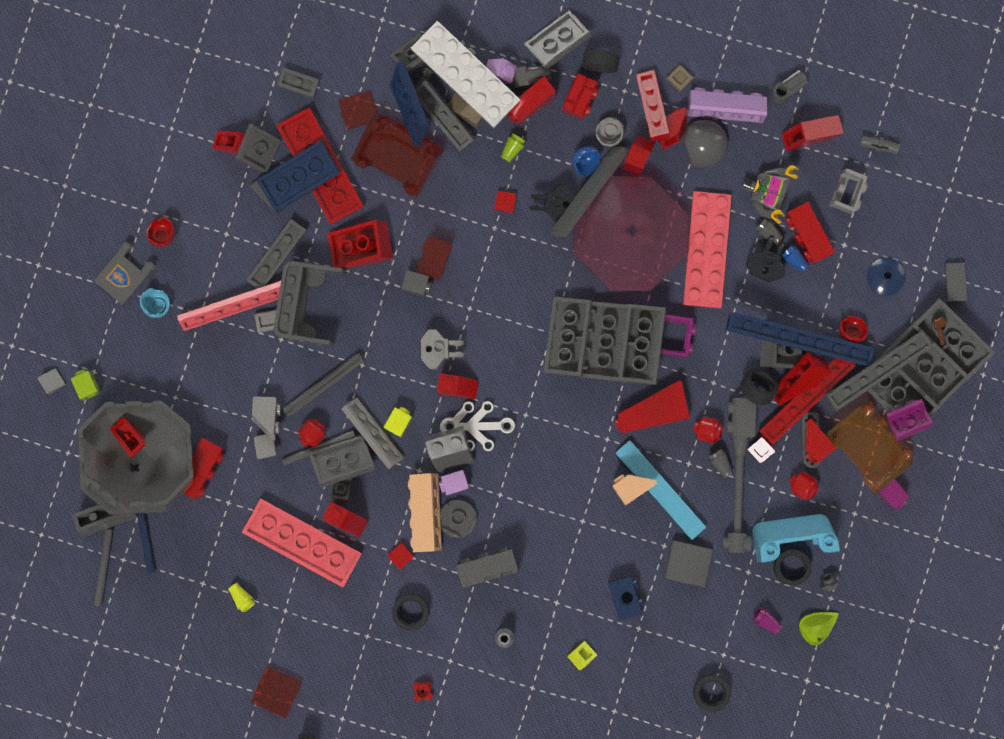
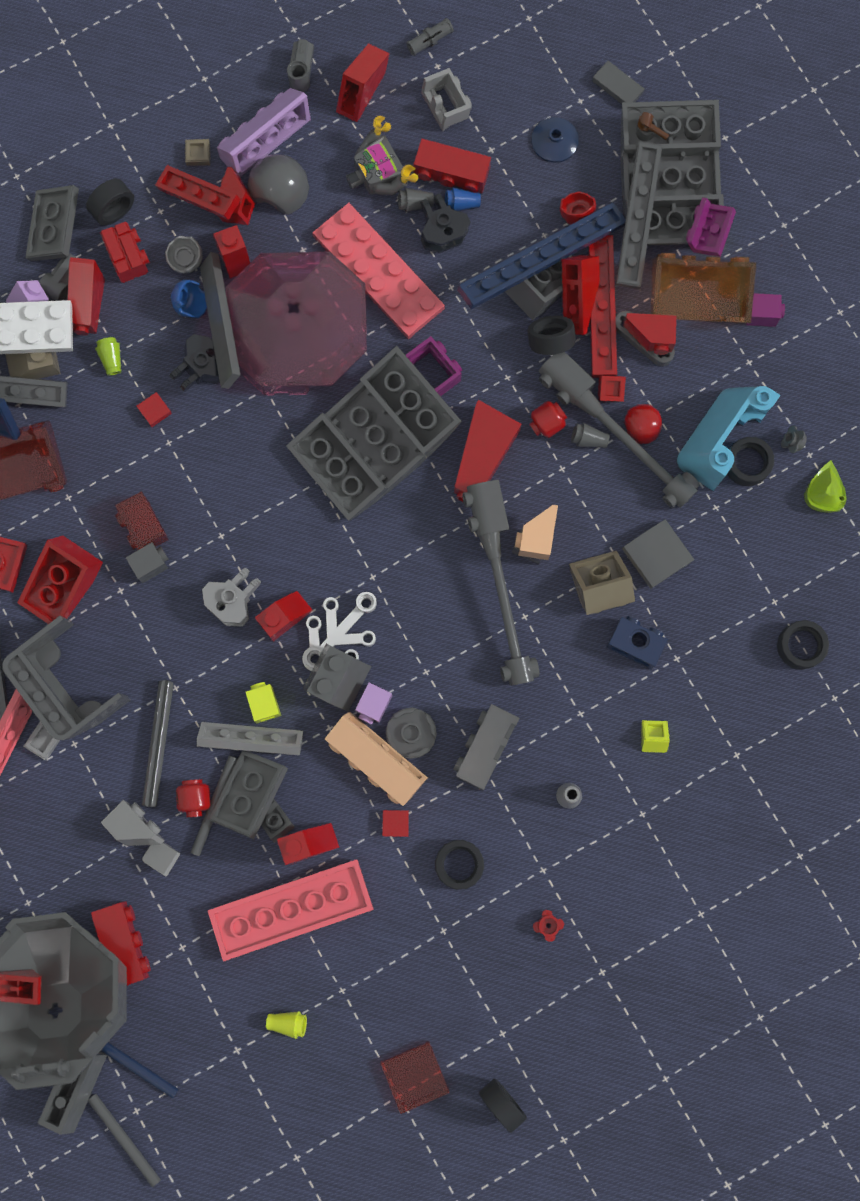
camera: 55 degrees left, 5 degrees down
(613, 453) = (488, 522): none -> dark grey bar
(641, 547) = (602, 582): none -> dark tan slope
(662, 491) = (576, 516): medium azure tile -> none
(758, 486) = (643, 423): none -> red hair
(766, 620) = (778, 530): magenta cone -> none
(804, 486) = (682, 381): red head -> none

